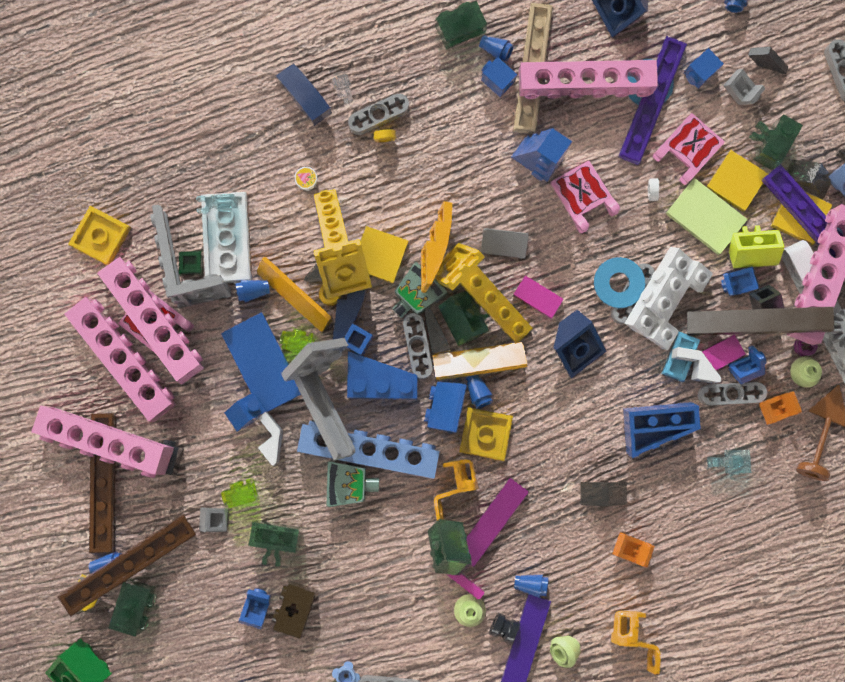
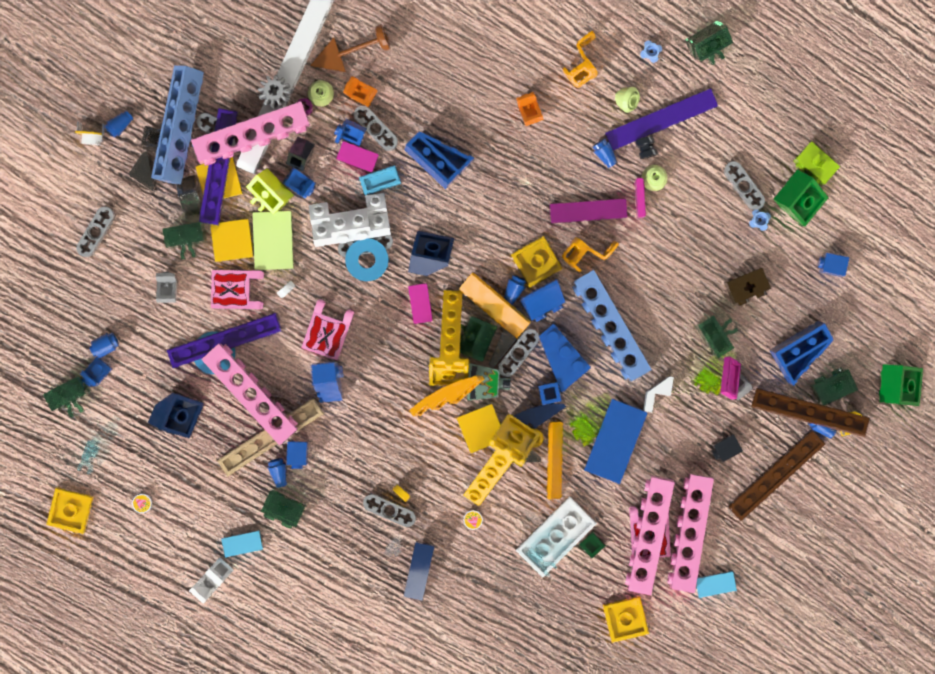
camera: 130 degrees left, 5 degrees up
(48, 427) = (773, 538): bright pink brick -> none
(56, 342) = (716, 584): none -> medium azure tile
(189, 291) = (610, 525): light grey bracket -> none
(191, 606) = (801, 350): none -> blue wedge
(225, 518) = (730, 378): none -> dark pink tile
(244, 412) = (655, 424): blue brick -> none
(251, 289) = (575, 490): blue cone -> none
(255, 608) = (768, 311): blue bracket -> none
(304, 370) = (612, 376): light grey bracket -> none
(348, 484) = (643, 320): torso -> none
(449, 547) = (627, 224): clear green brick -> none
(504, 243) = (404, 355): light grey slope -> none
(603, 493) = (509, 156): clear smoke slope -> none
(702, 368) = (379, 160): white slope -> none
(703, 68) = (176, 325): blue brick -> none
(734, 461) = (418, 91): clear light blue plate -> none
(761, 321) = (318, 150): tile -> none
(768, 59) = (131, 287): black tile -> none

